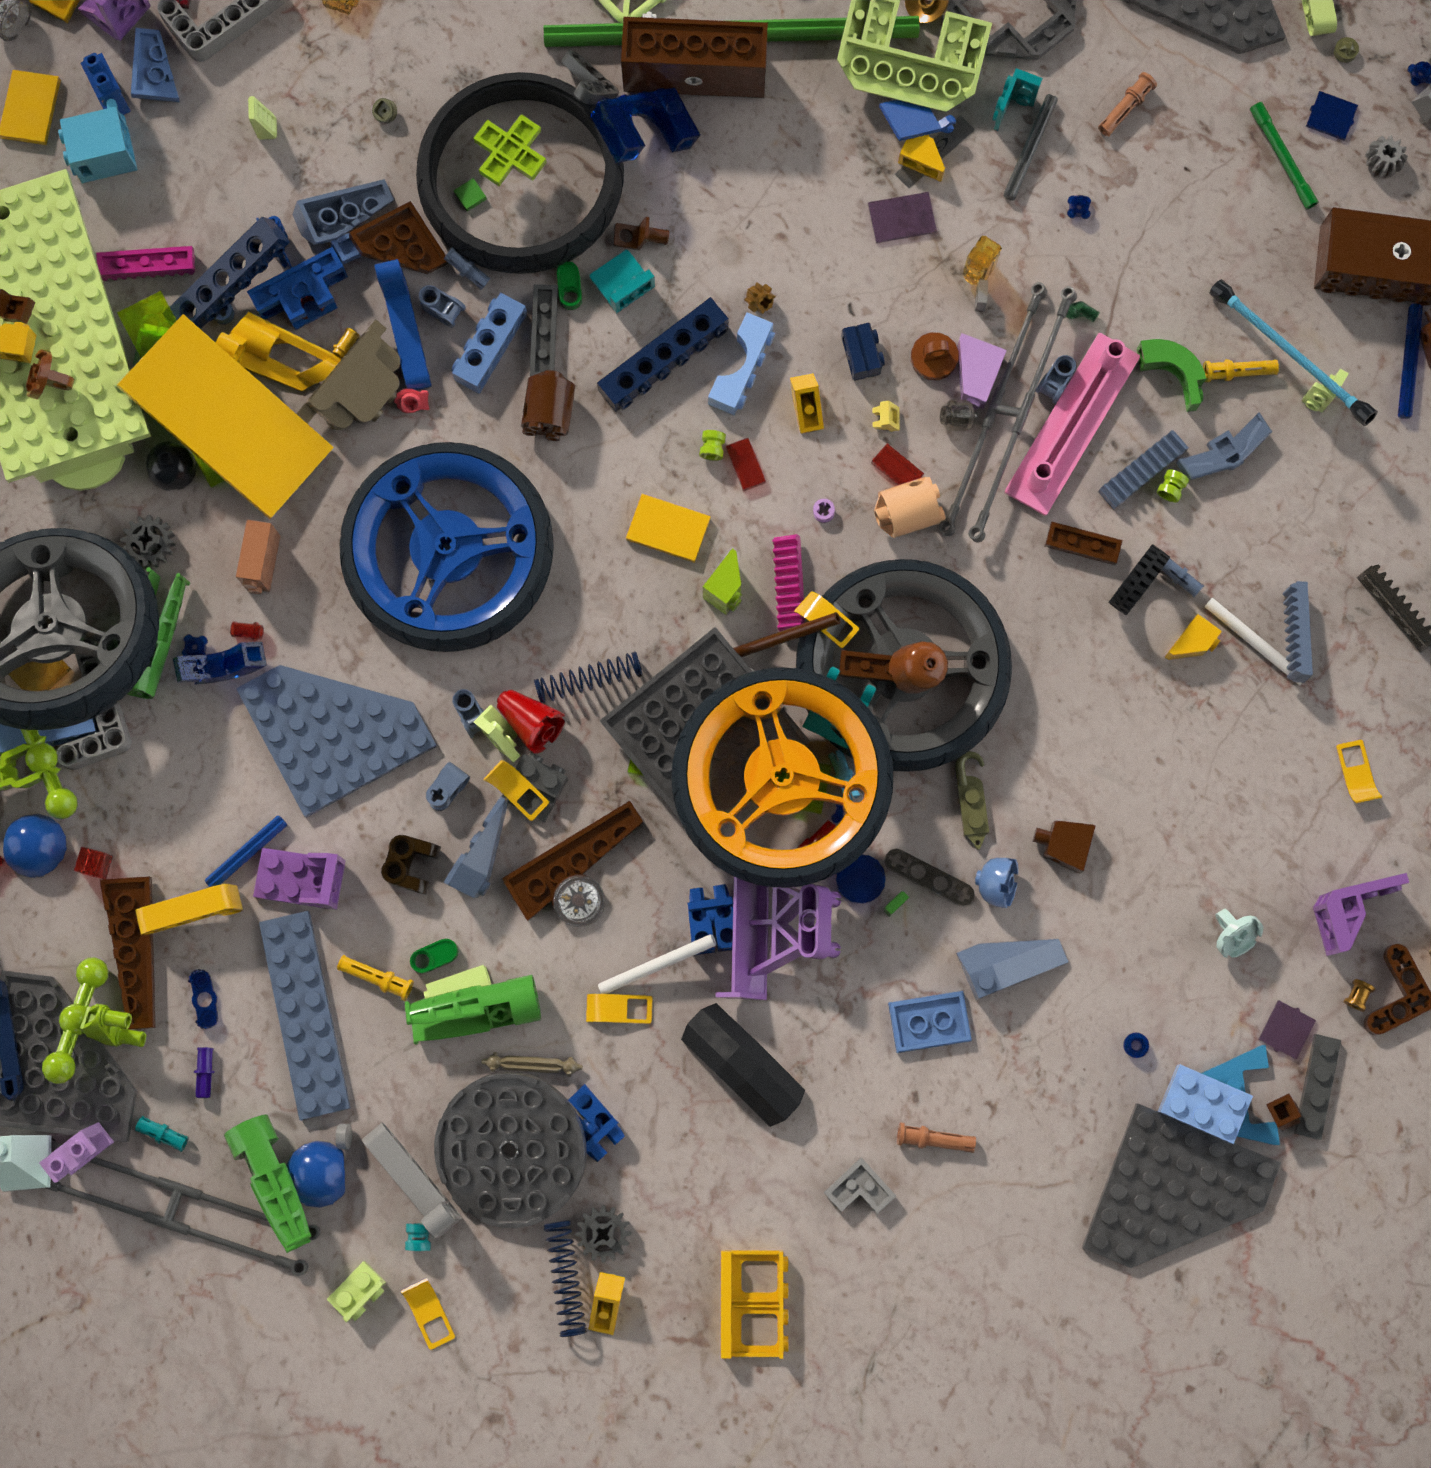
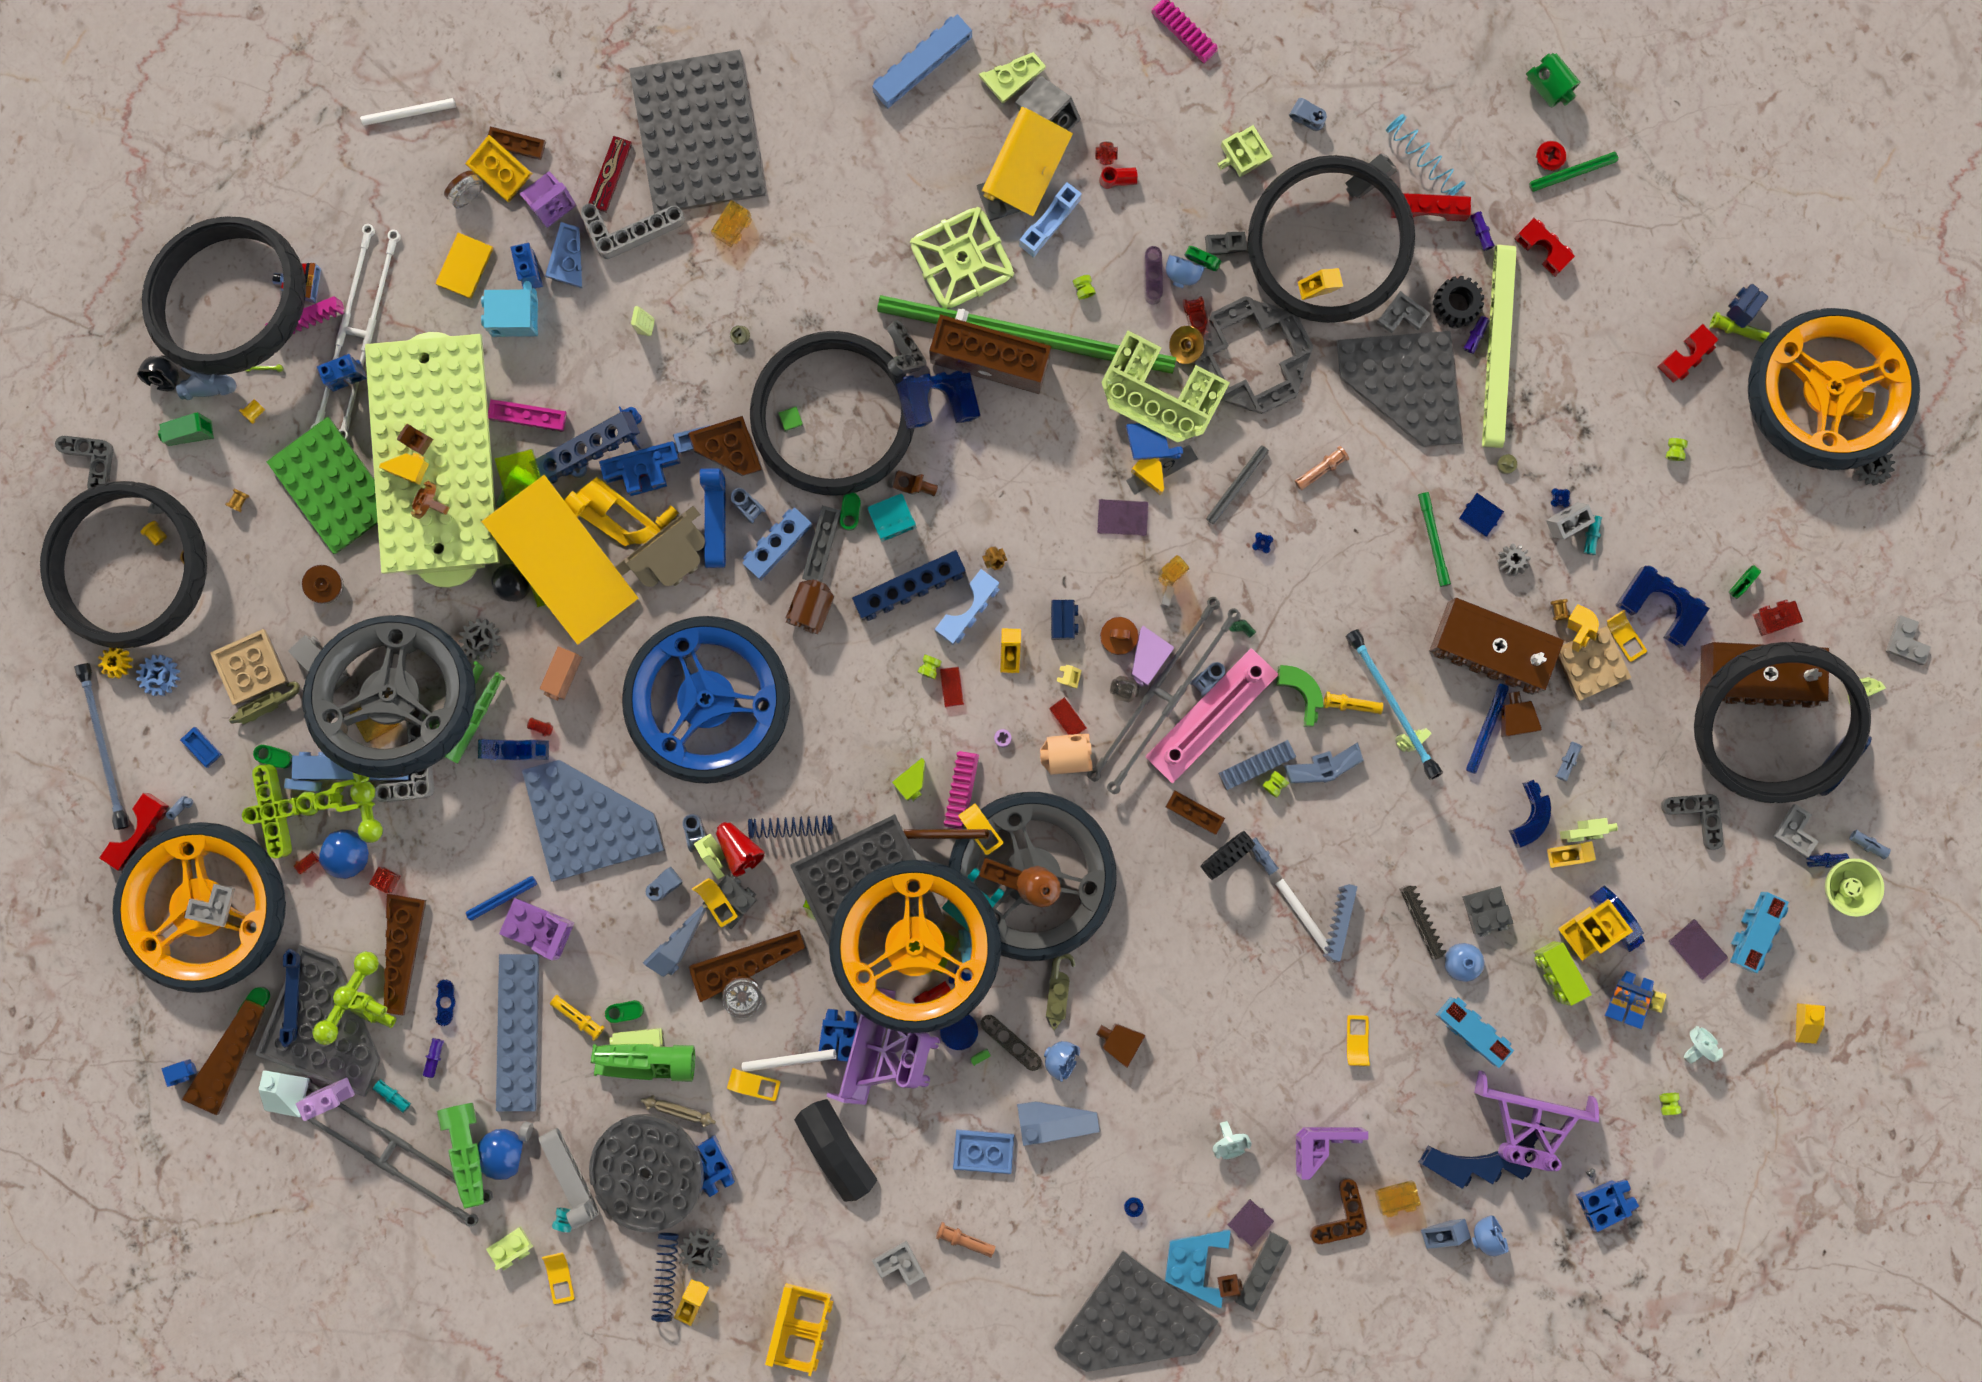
camera: 10 degrees right, 5 degrees up
(188, 908) = (448, 934): yellow beam -> none
(190, 641) = (503, 727): clear blue plate -> none
(338, 212) = (681, 412): sand blue wedge -> none
(404, 862) = (629, 925): dark brown piece -> none
(412, 400) = (707, 575): coral animal -> none
(467, 268) = (774, 480): sand blue pin -> none
(510, 150) = (827, 398): lime plate -> none
(668, 528) = (880, 723): yellow tile -> none
(1022, 88) = (1243, 440): teal bracket -> none
(1195, 639) = (1261, 909): yellow slope -> none
(1205, 1104) = (1171, 1266): light blue brick -> none
(1359, 995) = (1311, 1211): pearl gold bush -> none

